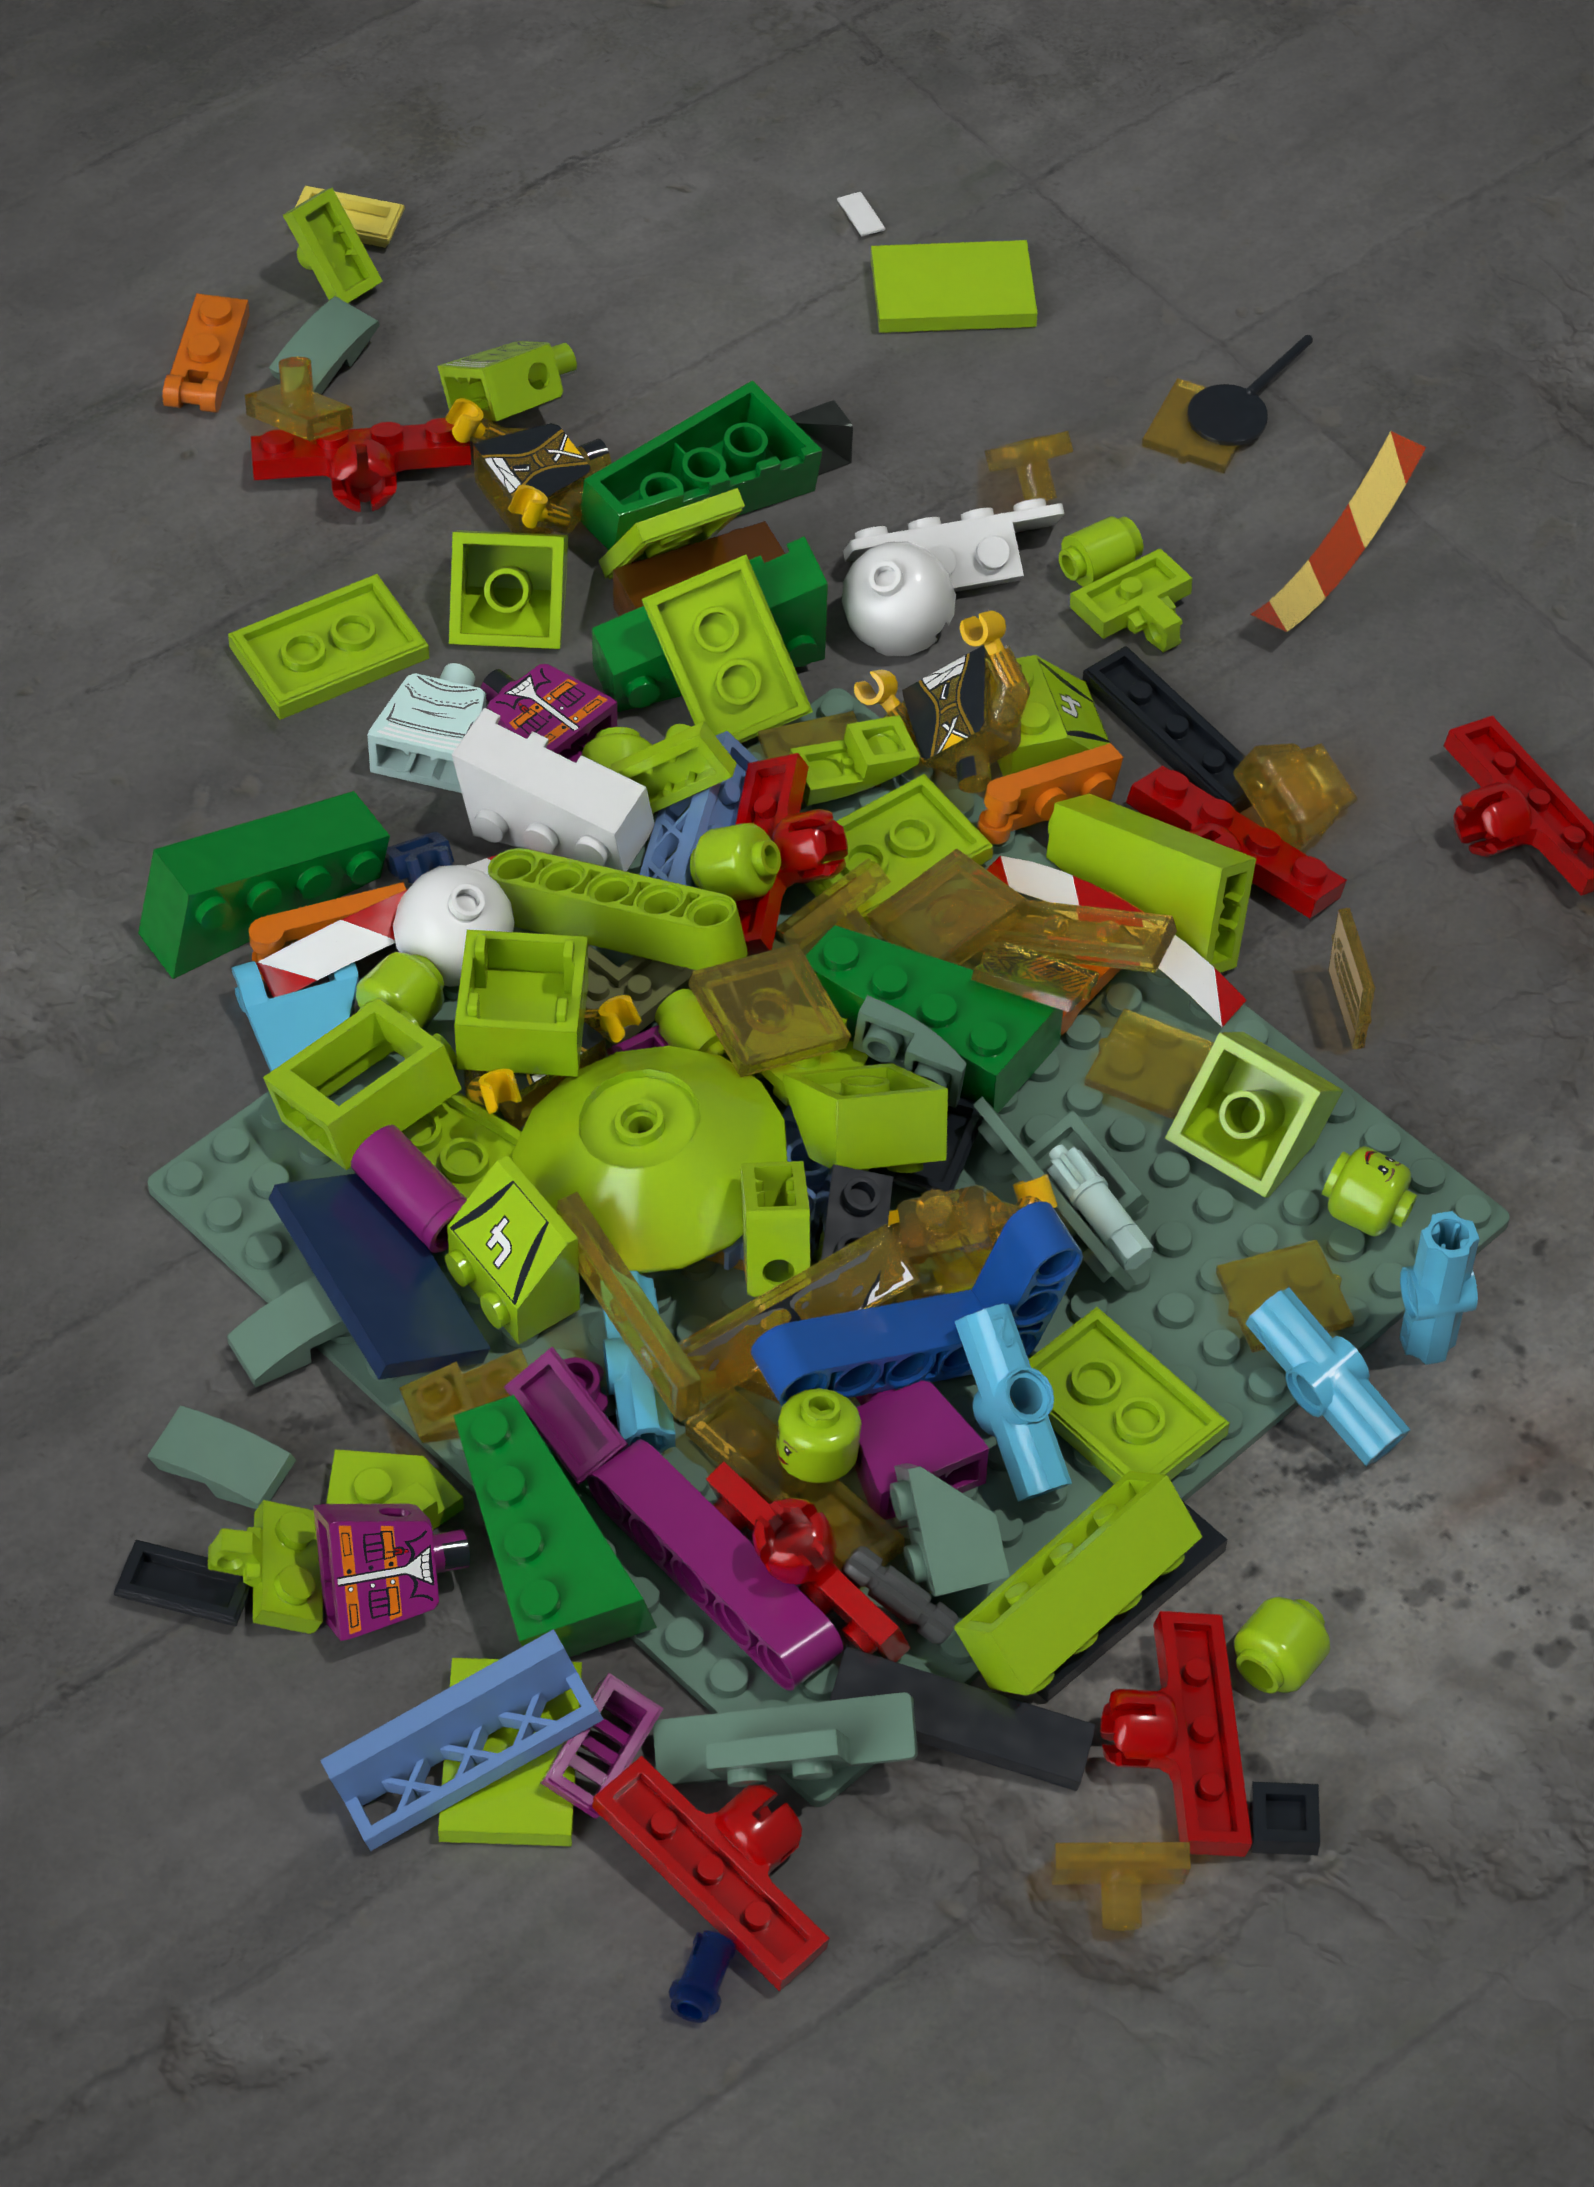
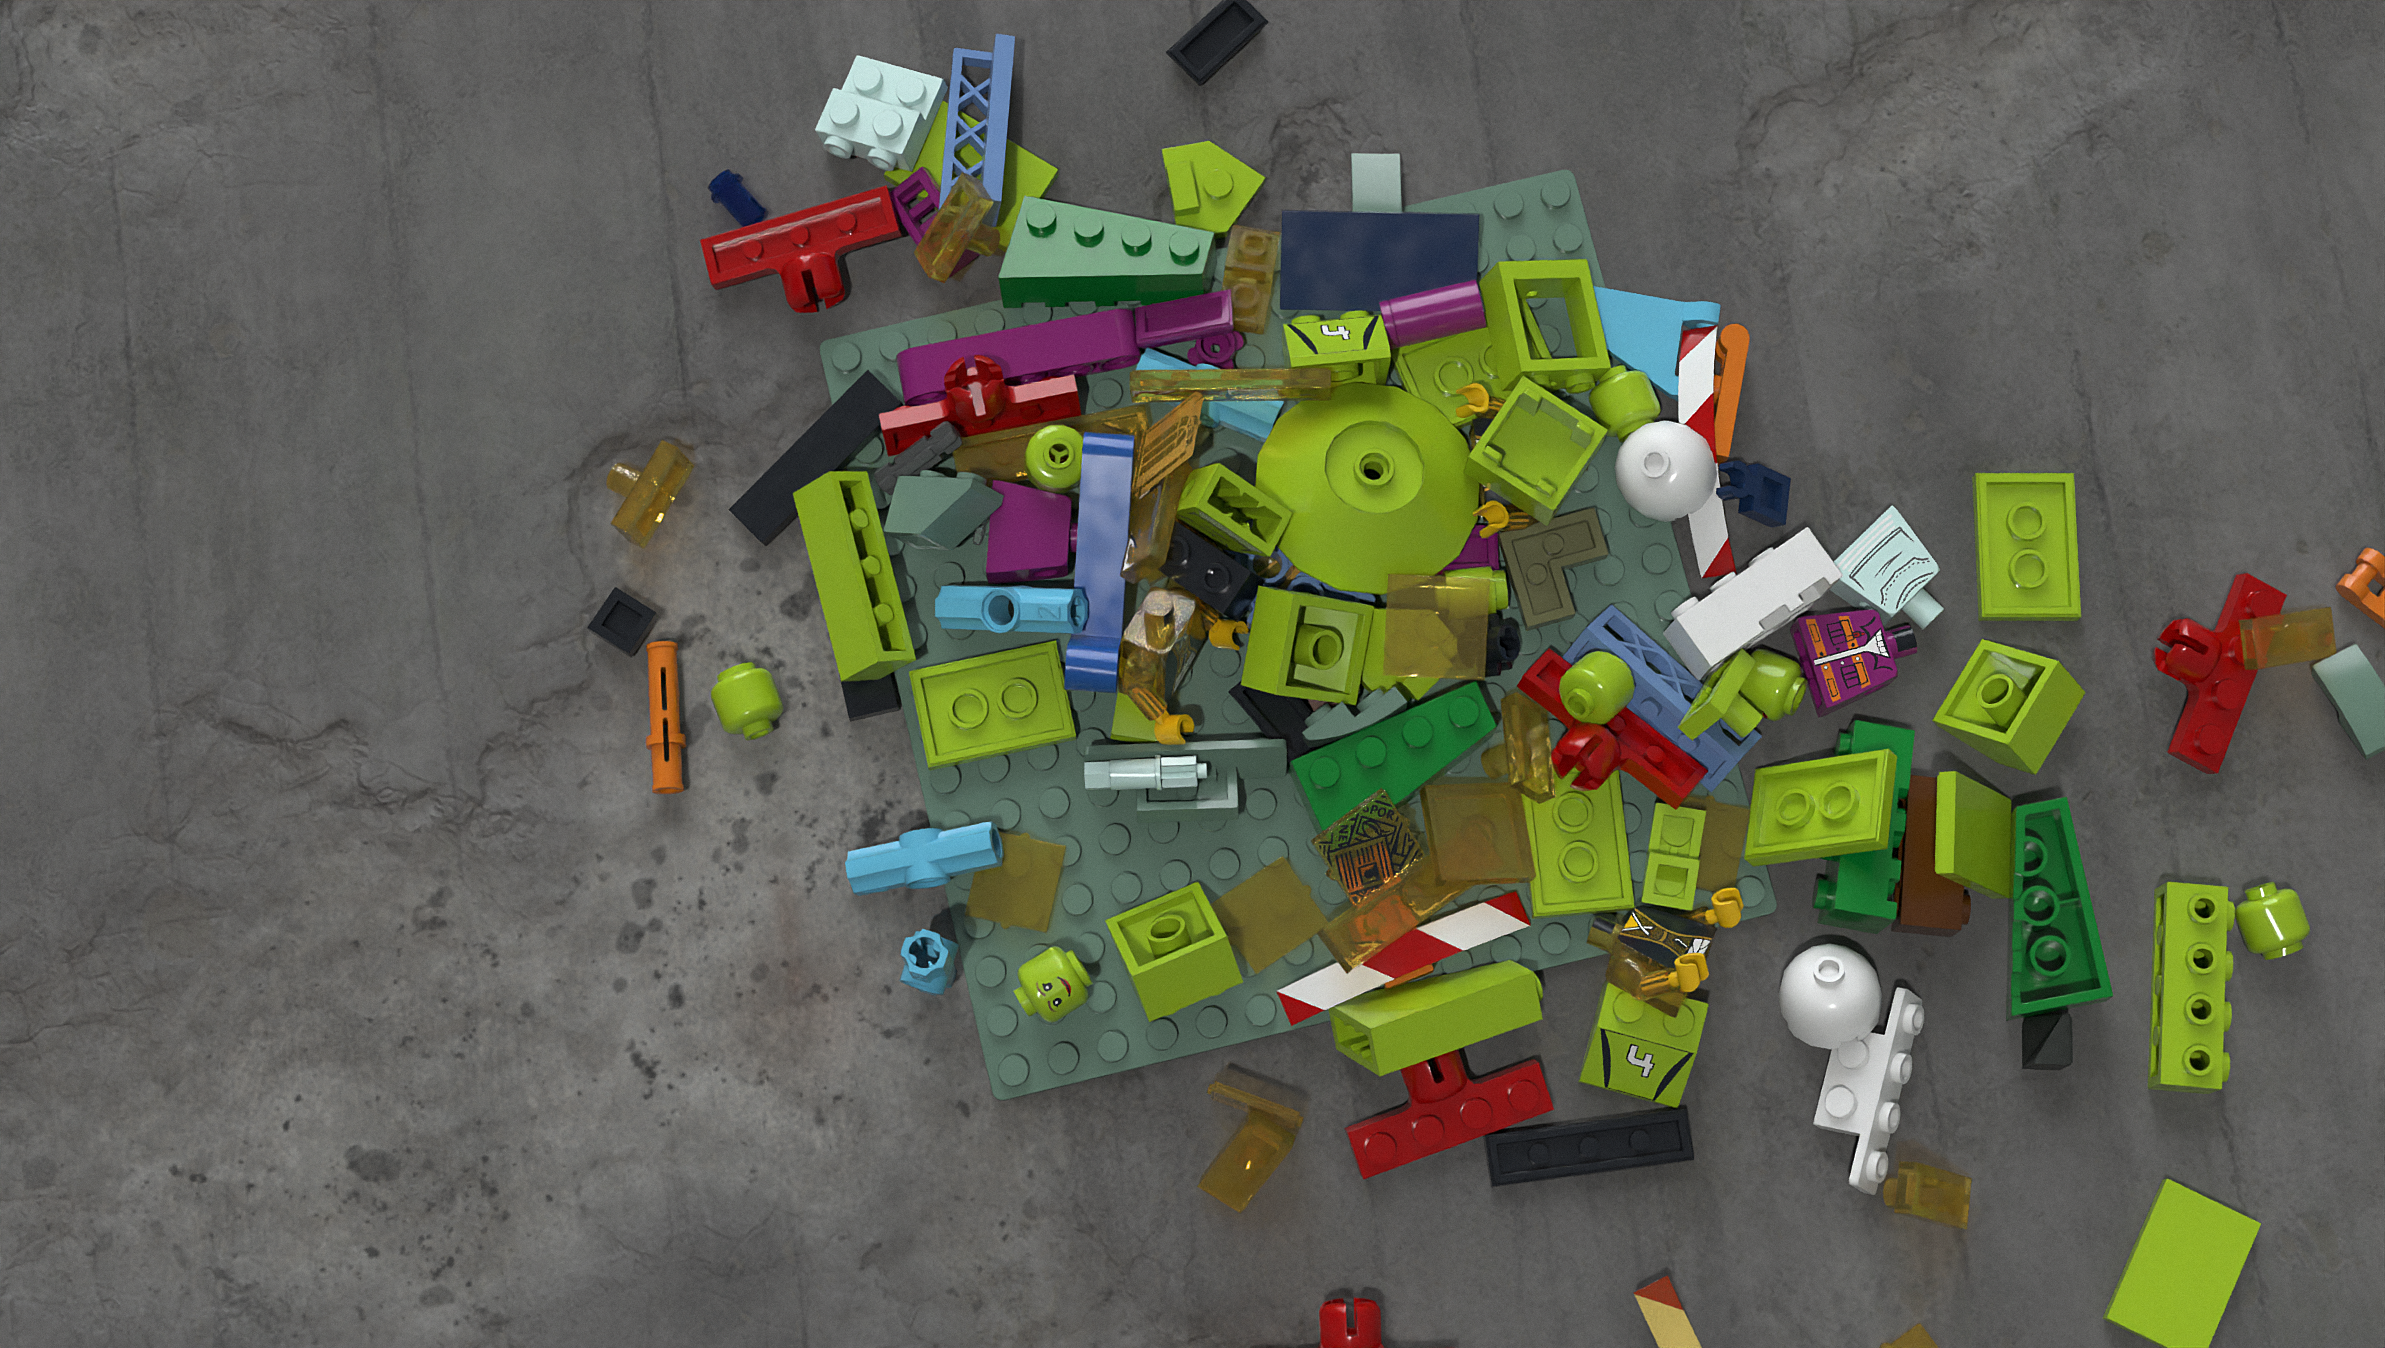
camera: 120 degrees right, 25 degrees up
(220, 882) = (1797, 370): green wedge -> none
(223, 1456) = (1296, 99): sand green slope -> none
(279, 1563) = (1192, 97): lime hinge -> none
(381, 1564) = (1142, 147): magenta torso -> none
(499, 1870) = (881, 114): none -> light aqua plate
(509, 377) = (2233, 815): lime torso -> none
(530, 473) = (2120, 786): torso -> none
(590, 325) = (2272, 921): none -> lime head
(613, 1670) = (958, 228): none -> clear yellow tile
(620, 909) = (1586, 592): lime beam -> none
(692, 364) = (2189, 988): none -> lime brick
(722, 1325) = (1167, 444): none -> clear yellow piece
(786, 1740) = (854, 325): sand green bracket -> none
(861, 214) = (2316, 1249): white piece -> none
(1031, 793) = (1562, 989): orange plate -> none
(1100, 549) = (1803, 1198): lime brick -> none
(1137, 598) = (1738, 1197): lime hinge -> none
(1187, 1733) = (720, 597): red plate -> none
(1294, 790) = (1462, 1183): clear yellow piece -> none
(1378, 1706) = (666, 775): none -> orange pin
(1408, 960) = (1246, 1161): none -> clear yellow tile

